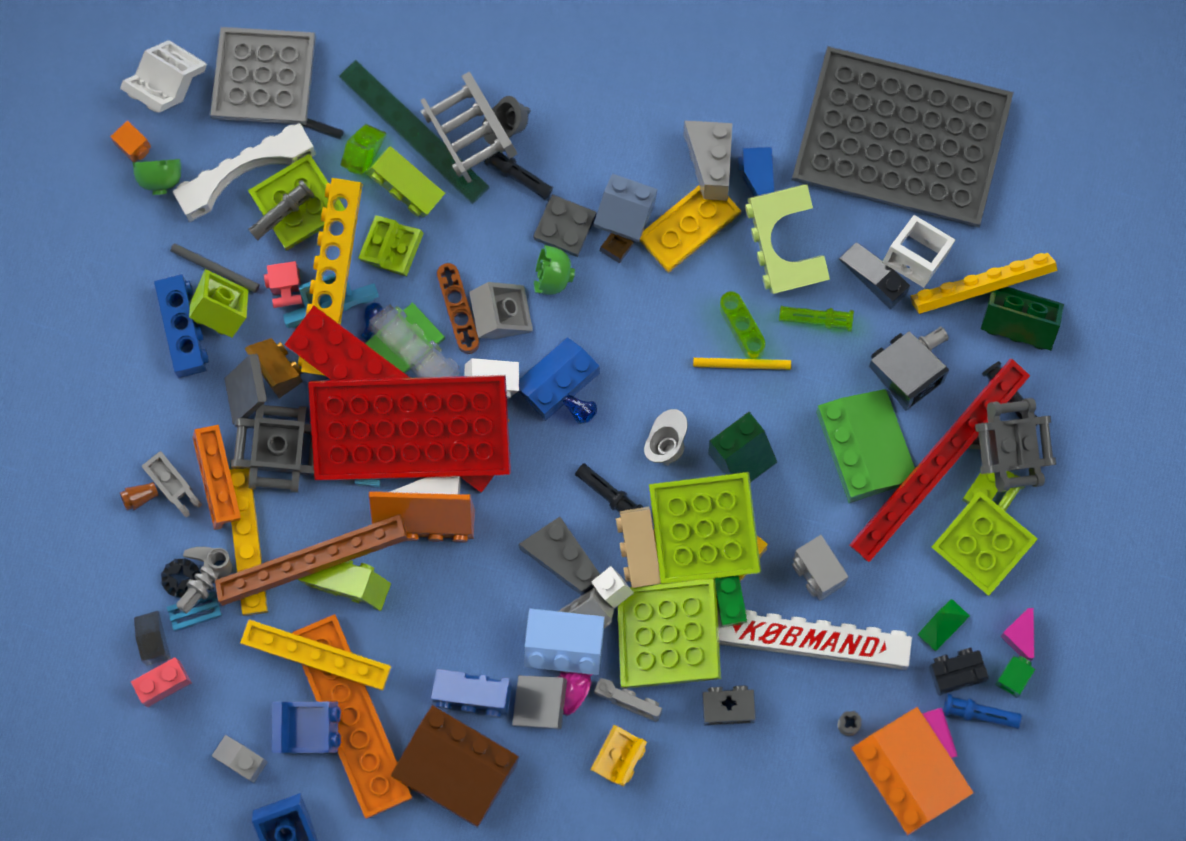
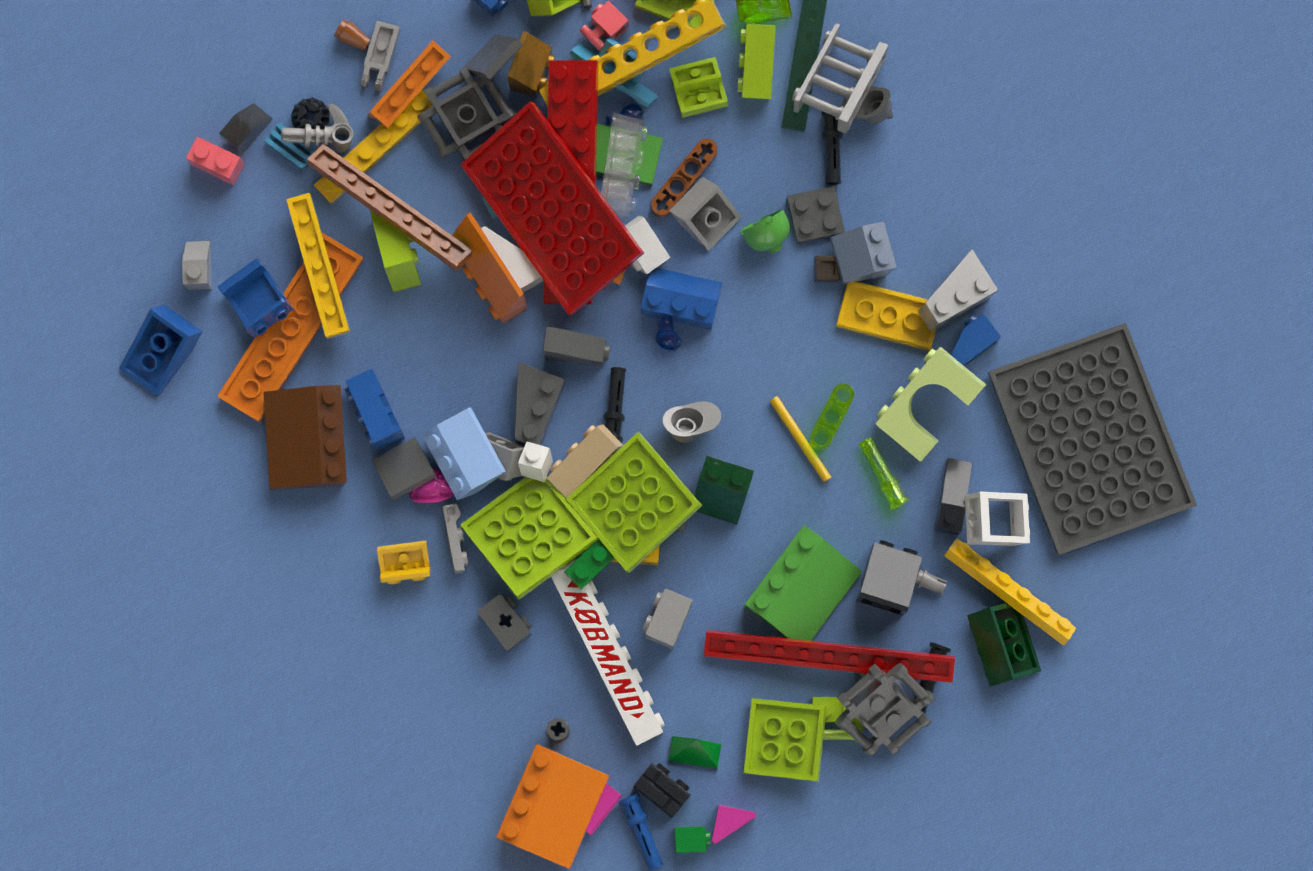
camera: 50 degrees right, 5 degrees up
(538, 490) = (575, 347): none -> dark grey slope

